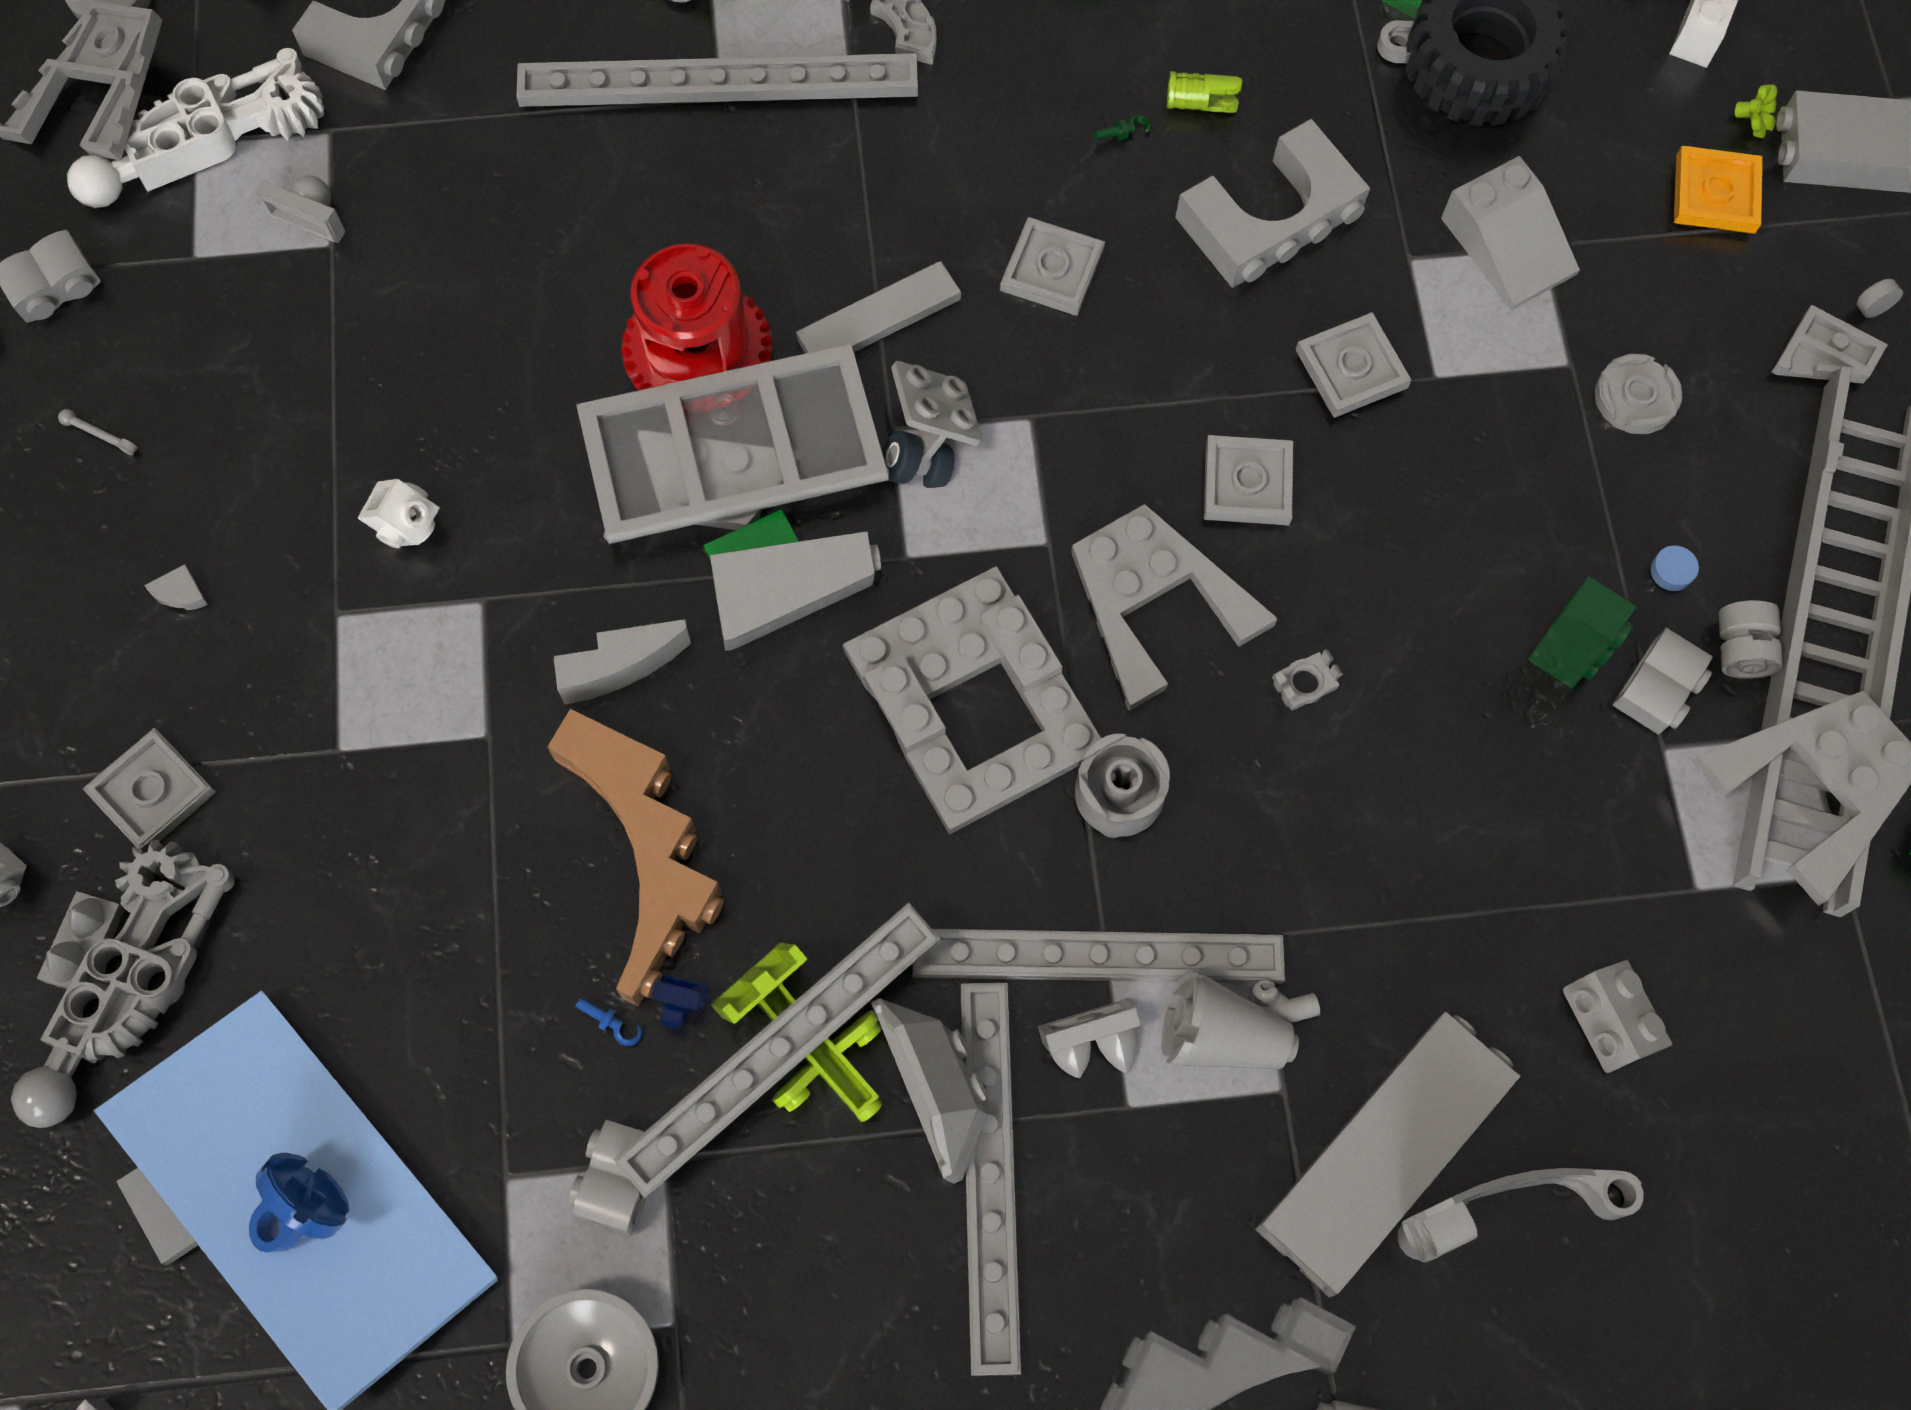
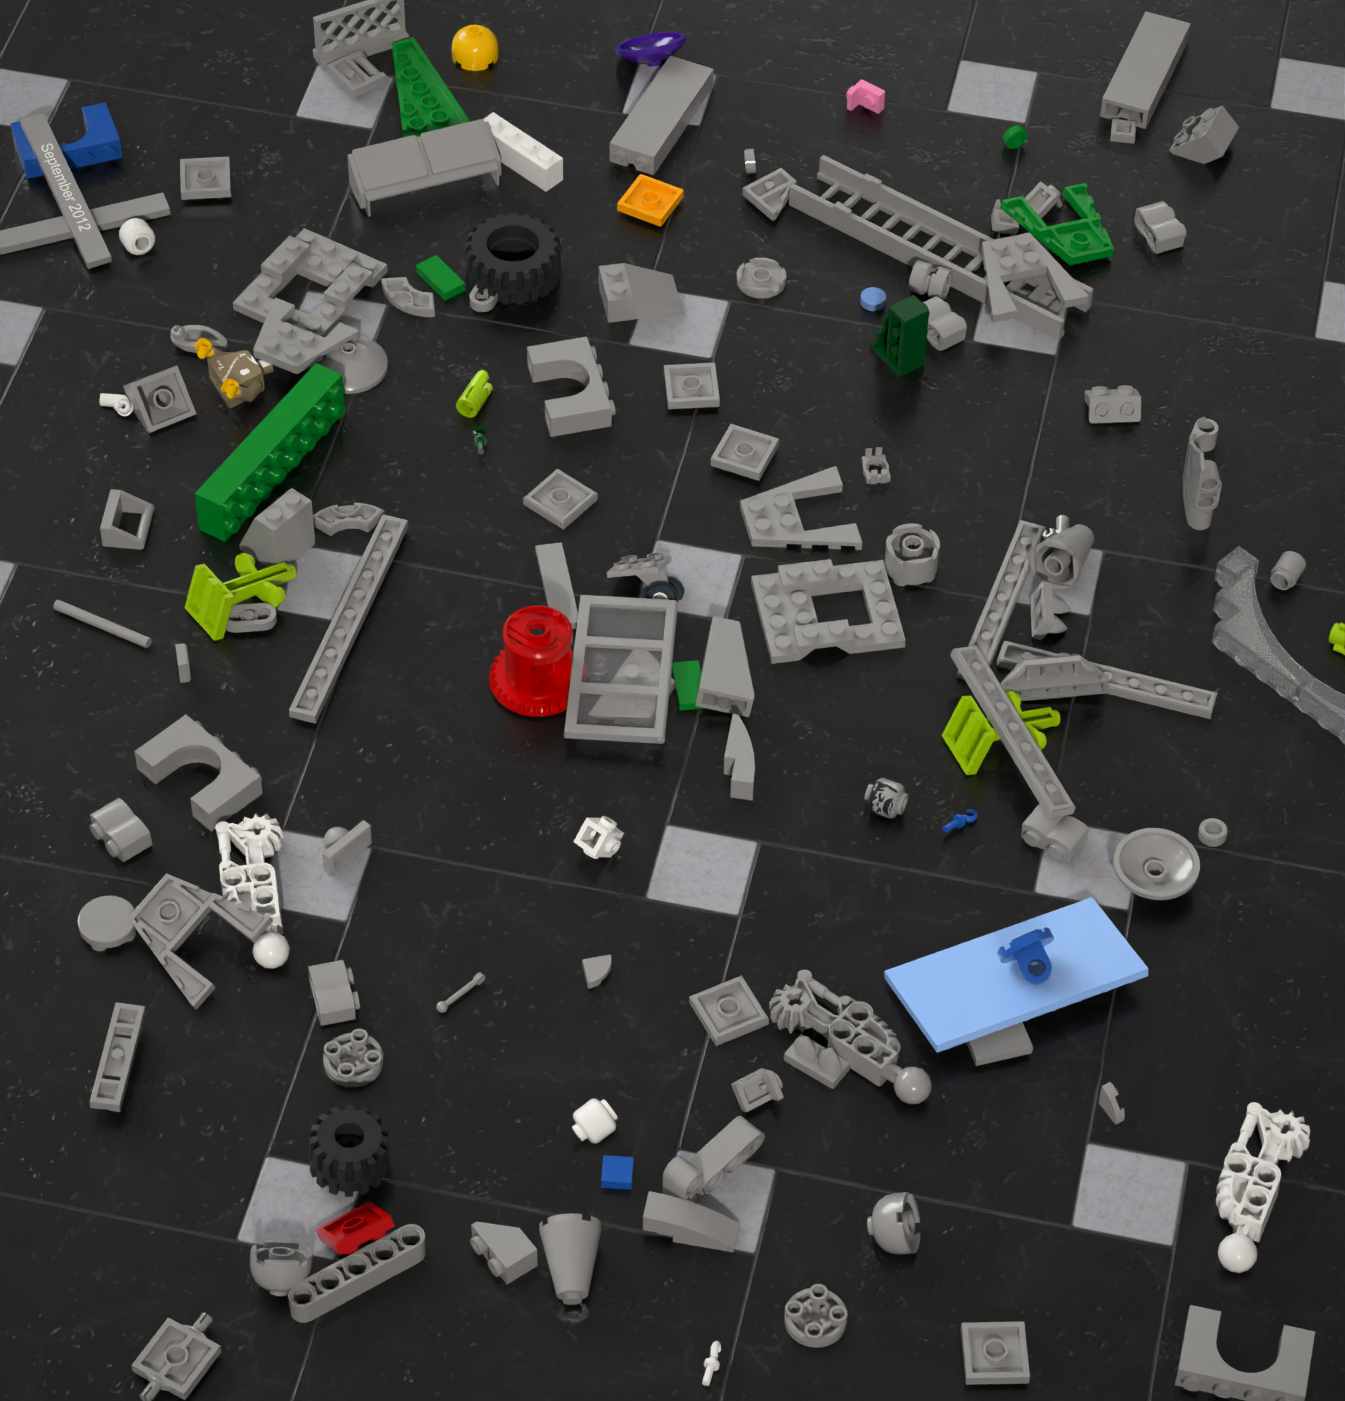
camera: 70 degrees left, 20 degrees down
(604, 894) = (886, 798): none -> light grey head
(669, 893) = (820, 774): medium nougat arch -> none
(679, 997) = (962, 782): clear blue tile -> none
(1388, 1153) = (1153, 513): light grey brick -> none
(1759, 110) = (607, 166): lime plant -> none

